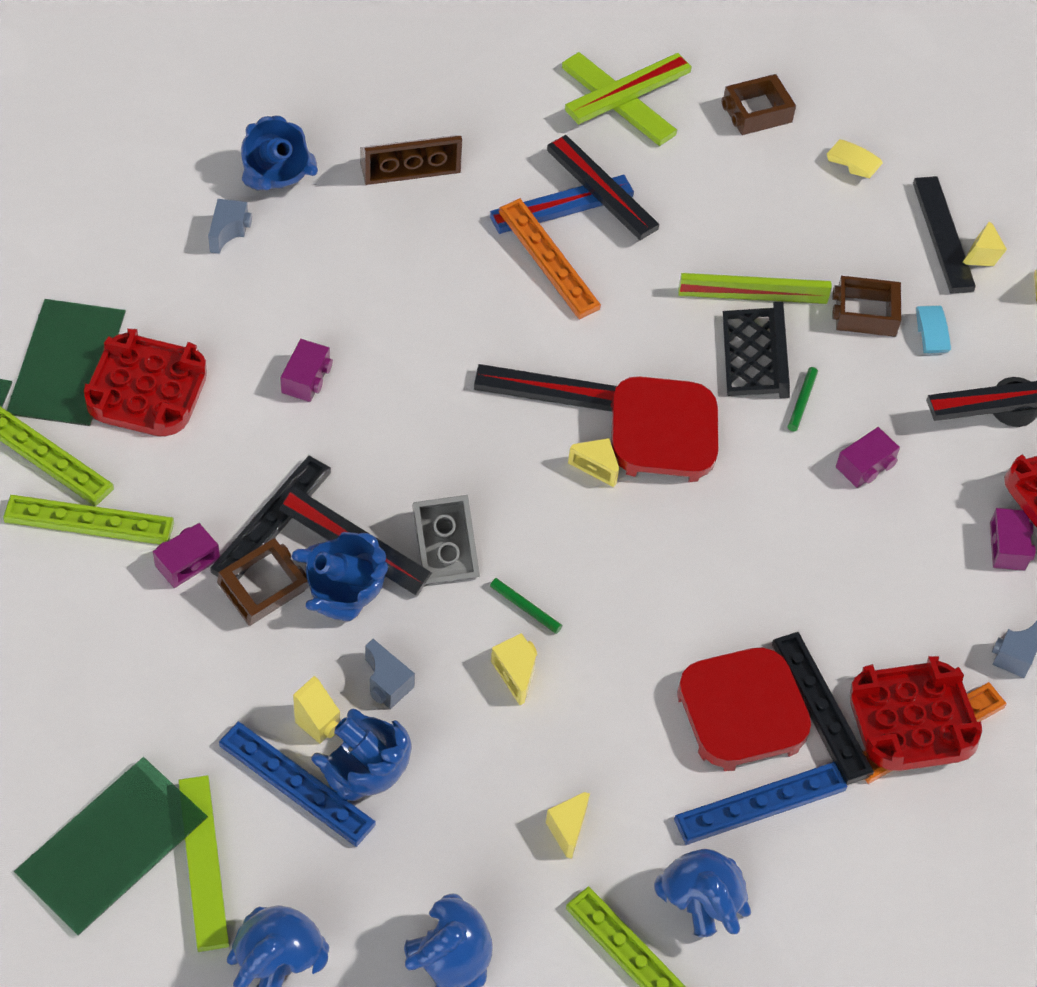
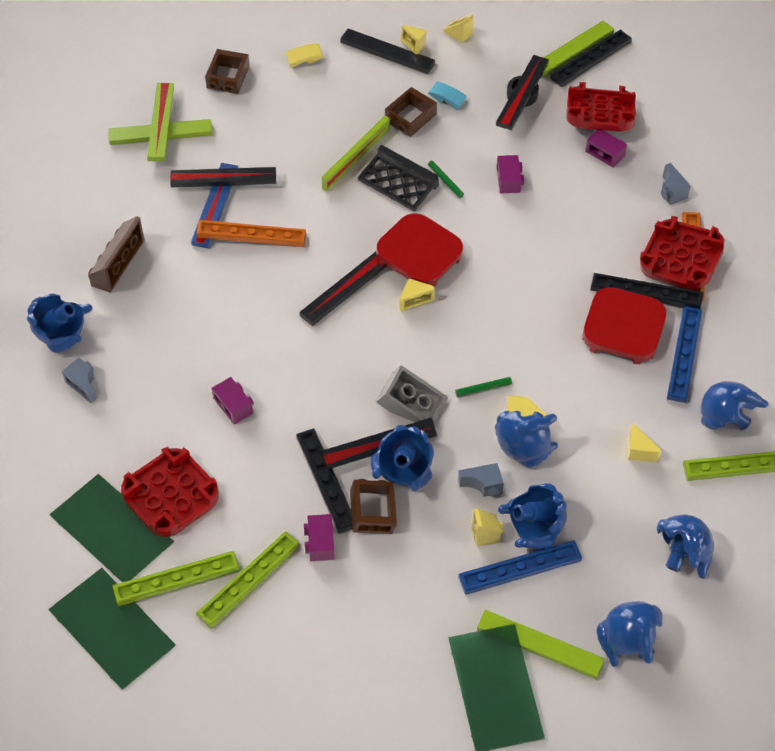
camera: 50 degrees left, 0 degrees up
(467, 681) = (526, 437): none -> blue piece

